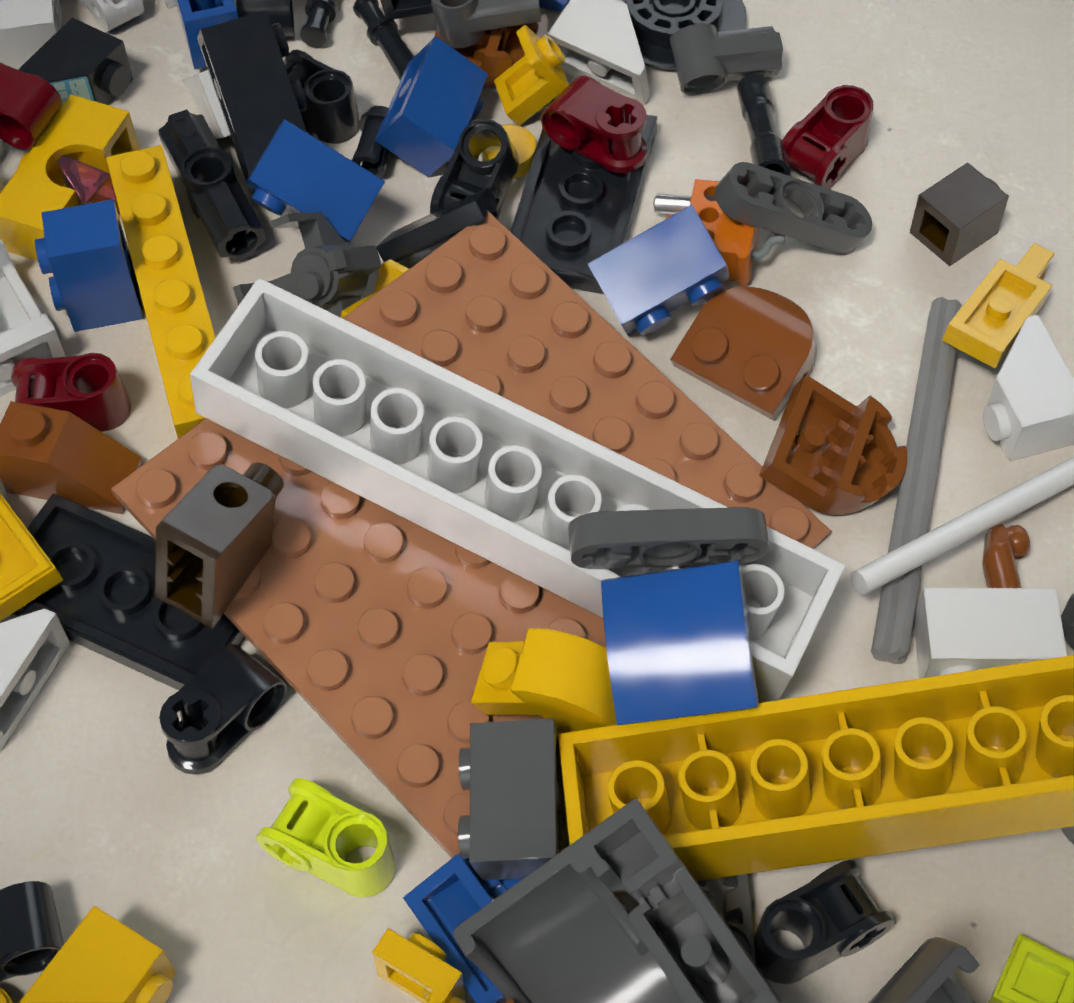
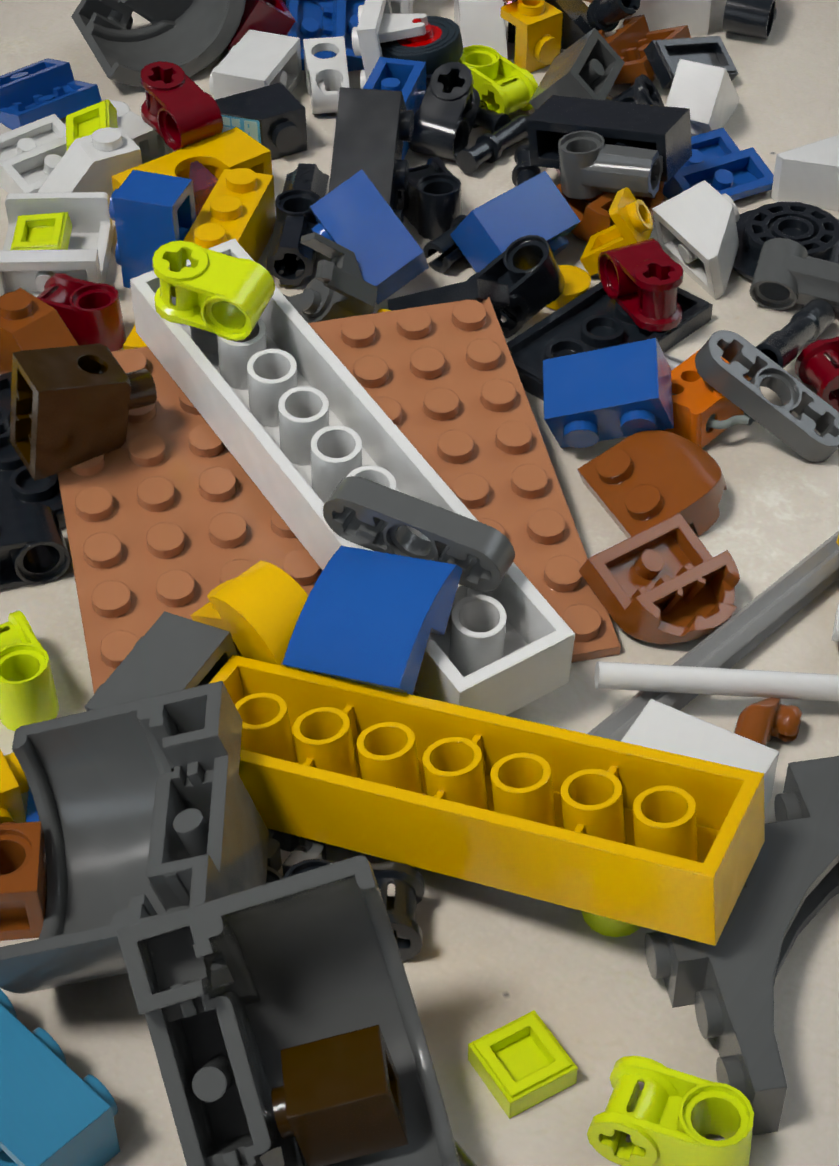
camera: 30 degrees right, 15 degrees down
(301, 357) = (214, 293): none -> neon yellow piece

